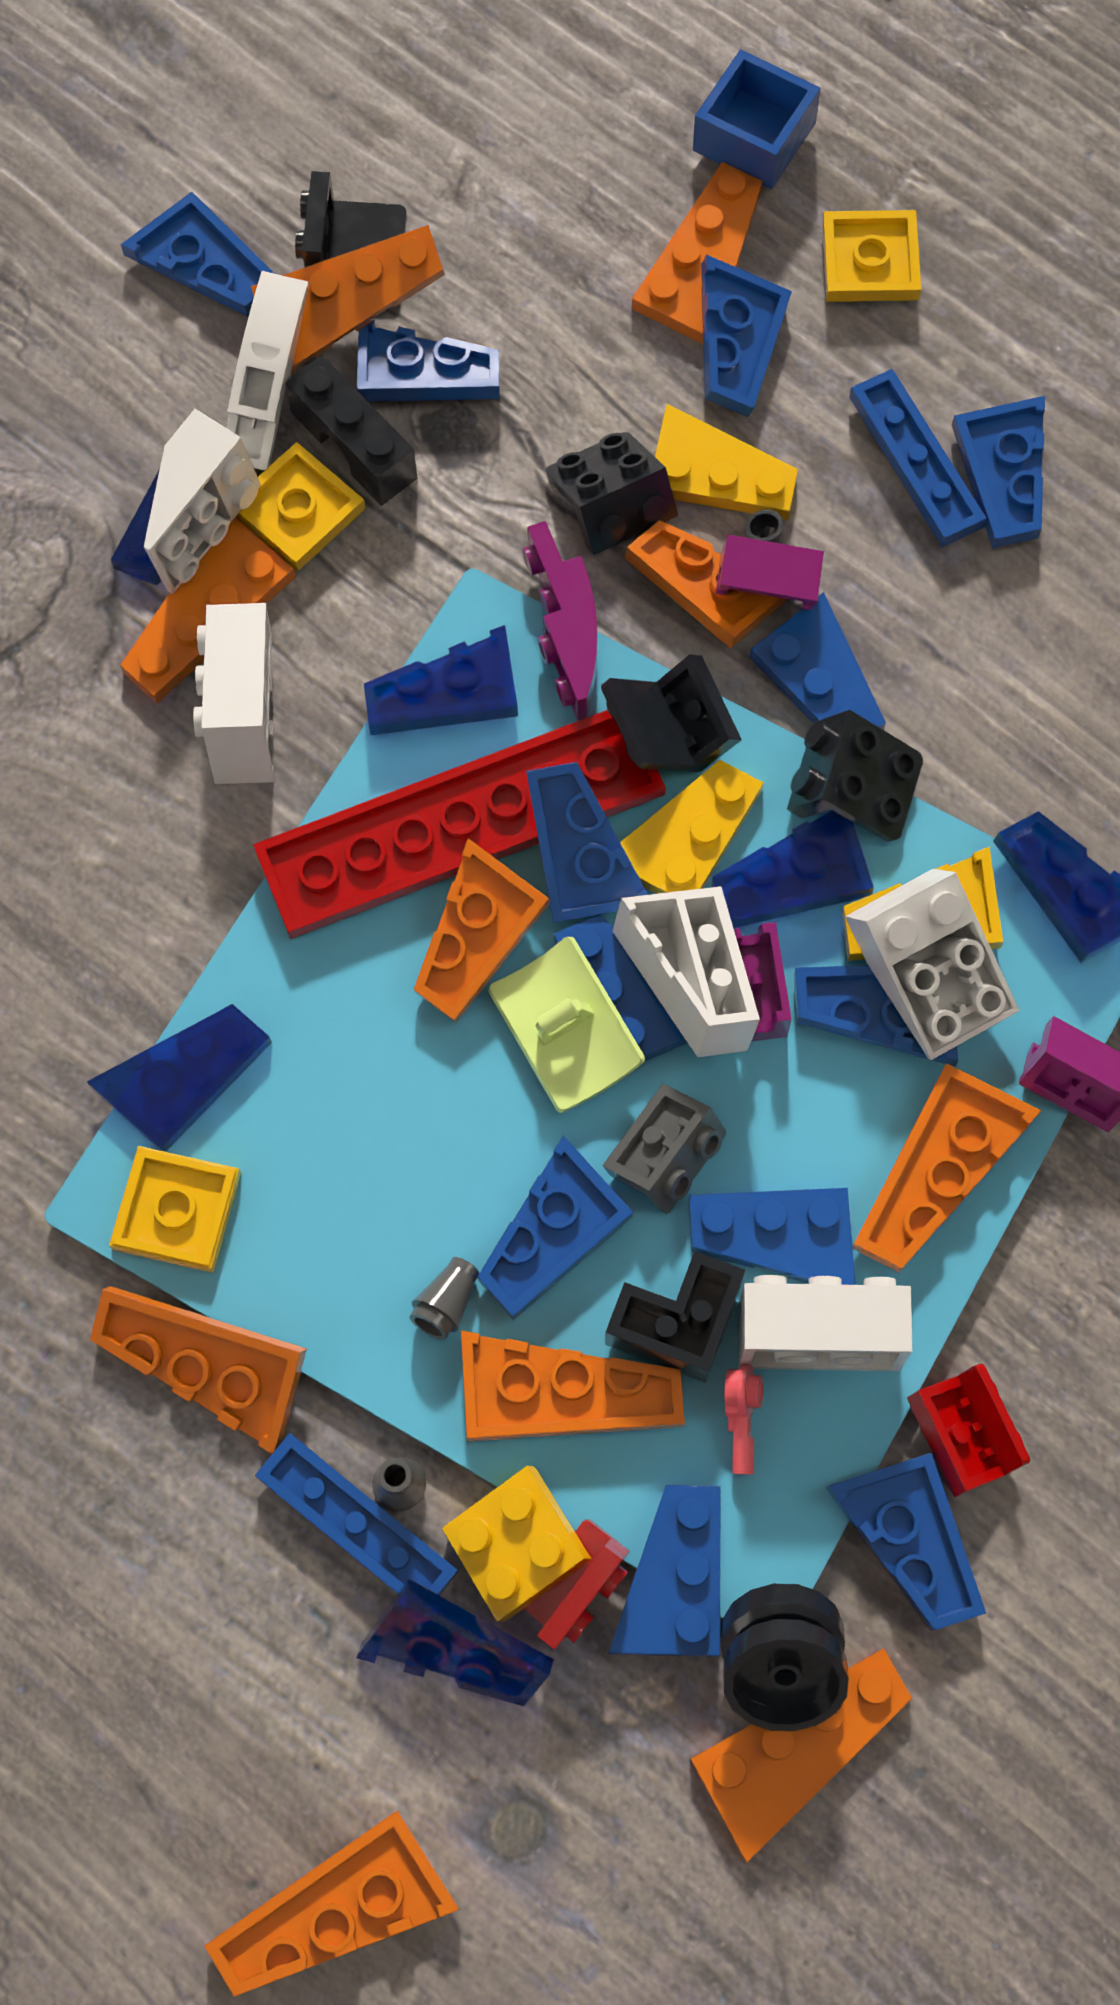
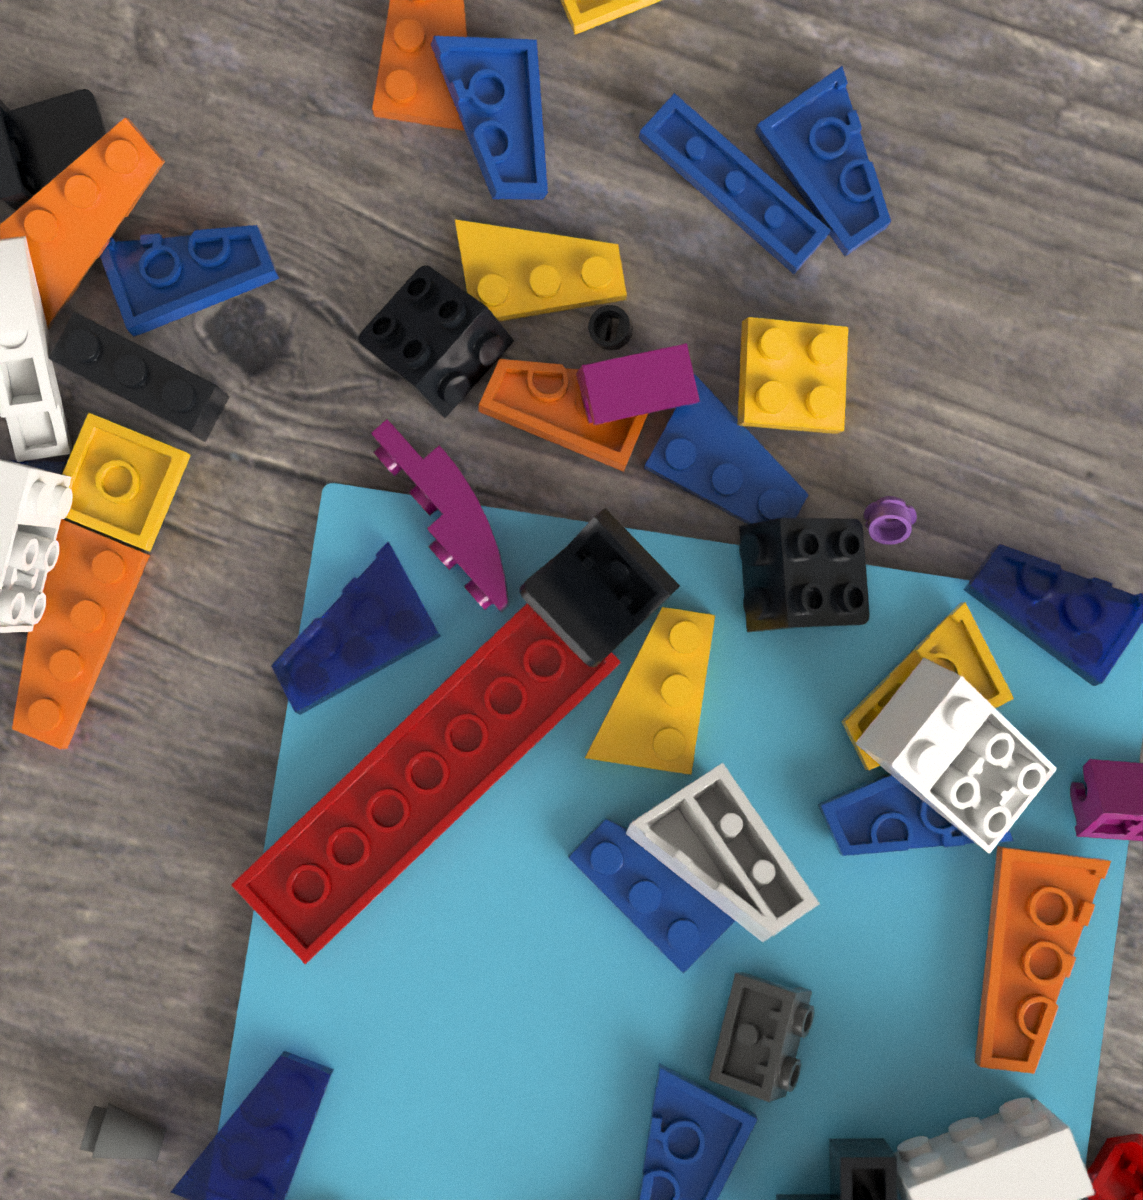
camera: 25 degrees left, 15 degrees up
(59, 1025) = (120, 1135): none -> dark grey cone
(235, 692) = (141, 721): white wedge -> none
(480, 927) = (494, 885): orange wing -> none
(567, 1026) = (618, 950): yellowish green shield -> none
(578, 847) = (562, 766): blue wing -> none
(767, 980) = (794, 828): magenta hinge -> none
(778, 1231) = (900, 1074): blue wing -> none
(800, 873) = (783, 700): clear blue wing -> none
(909, 623) = (792, 375): none -> yellow plate
(942, 775) = (889, 520): none -> medium lavender plate

